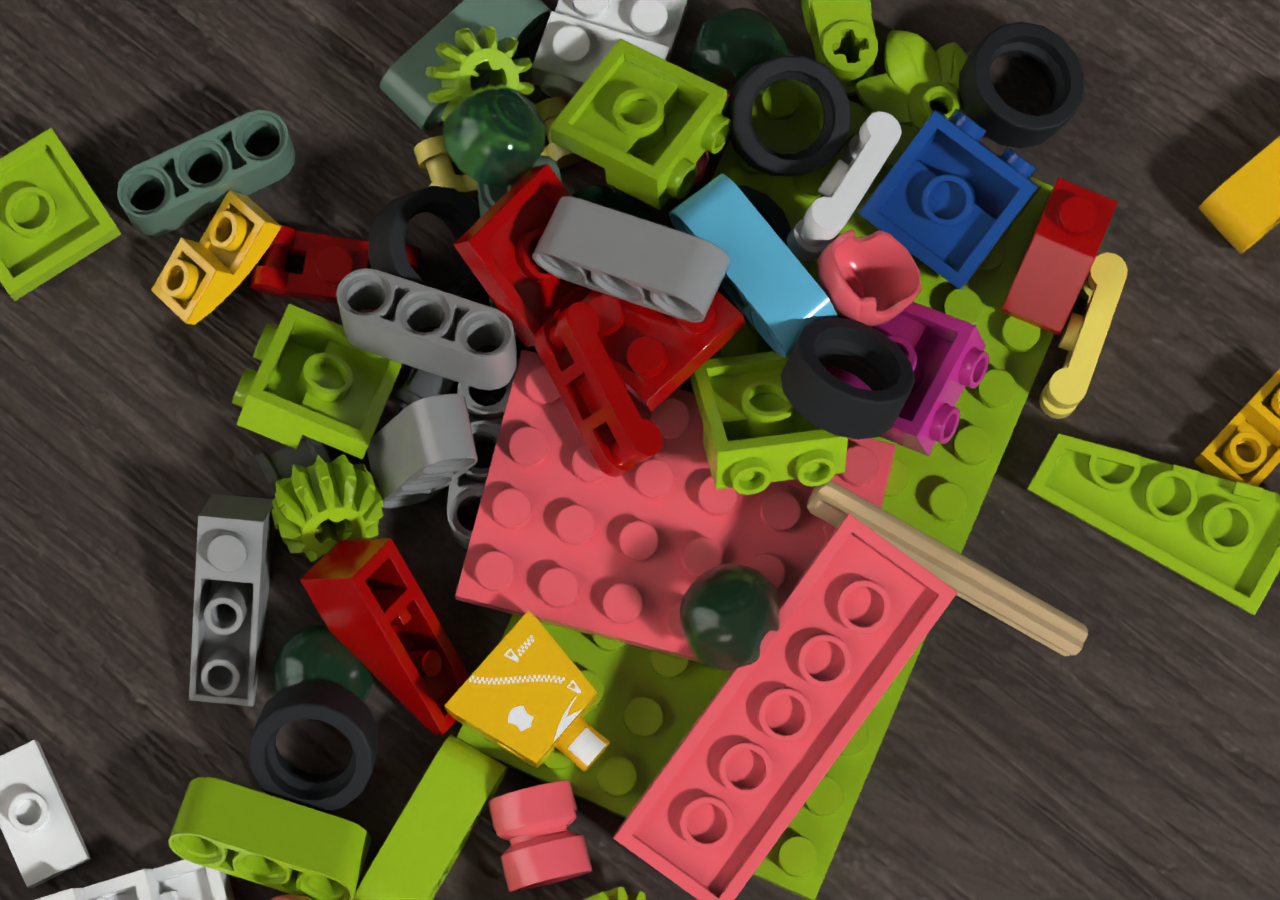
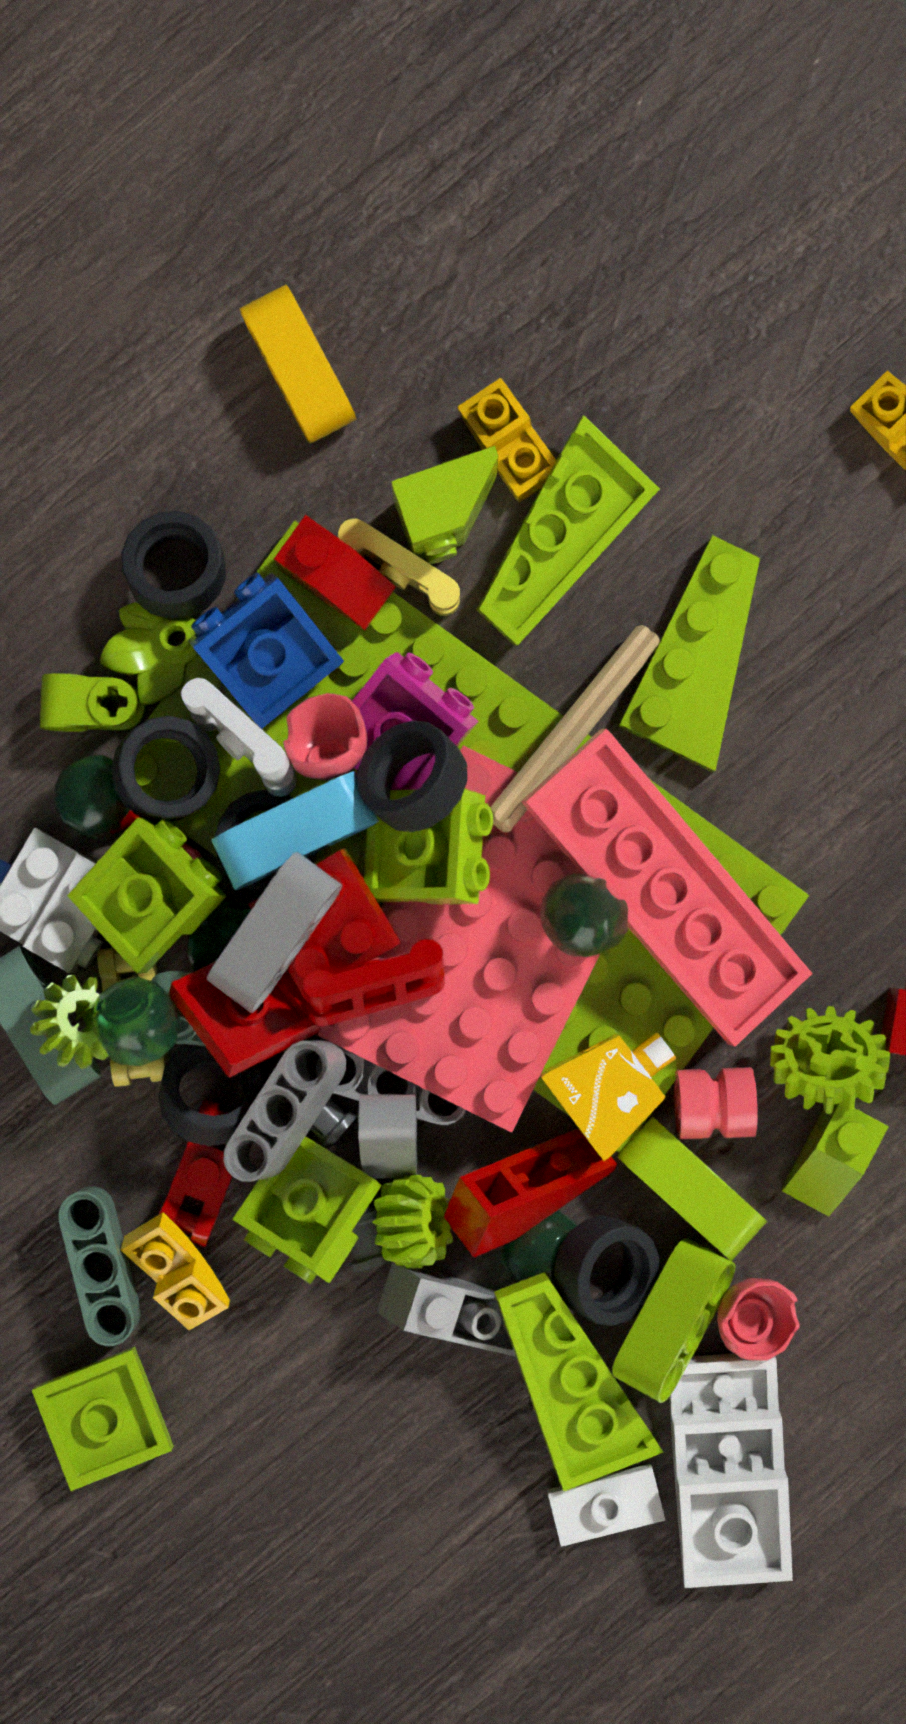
camera: 75 degrees left, 10 degrees up
(150, 747) = (574, 1395): none -> lime wing
(1049, 703) = (694, 668): none -> lime wing
(1172, 365) = (443, 503): none -> lime slope

